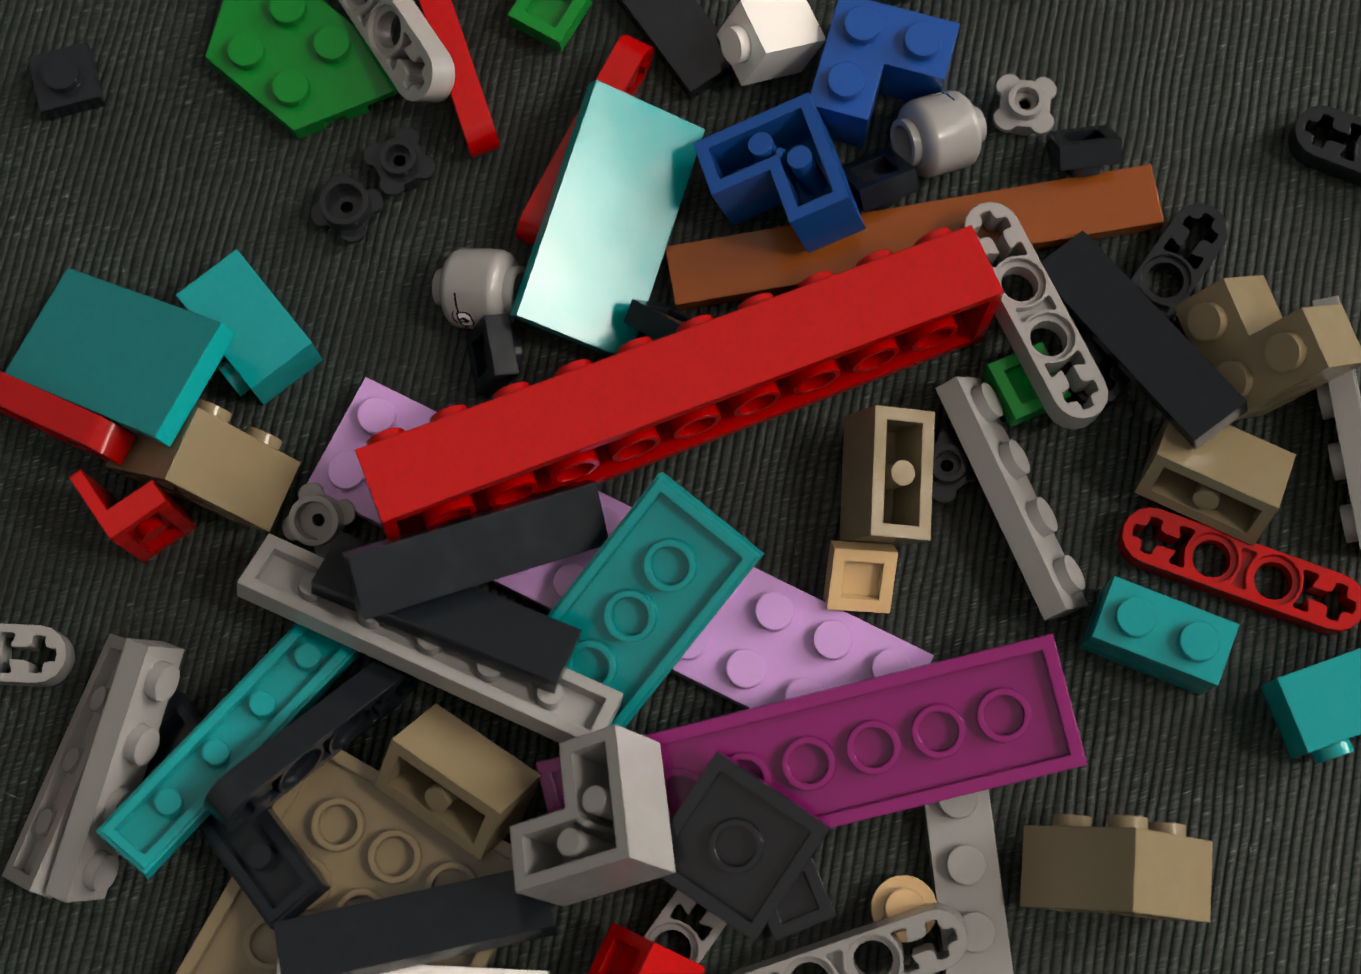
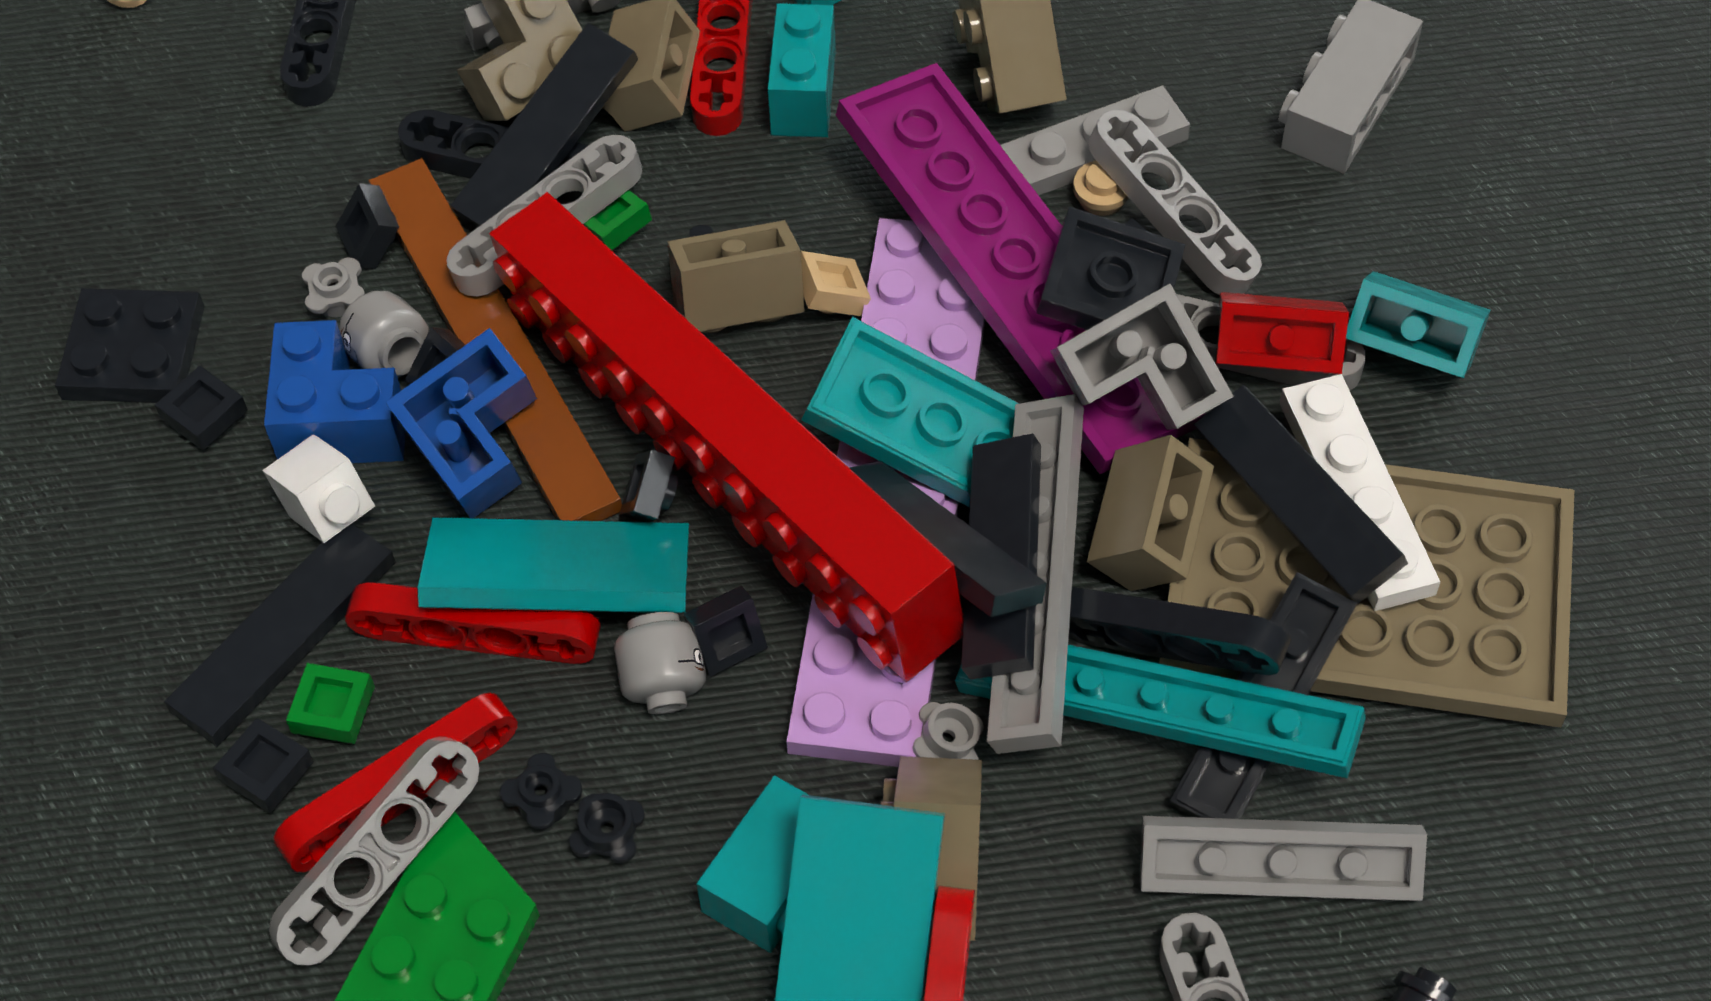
camera: 110 degrees left, 20 degrees down
(115, 766) = (1243, 795): light grey plate -> none
(140, 522) = (1023, 869): red panel -> none
(1023, 516) = (733, 178): light grey plate -> none

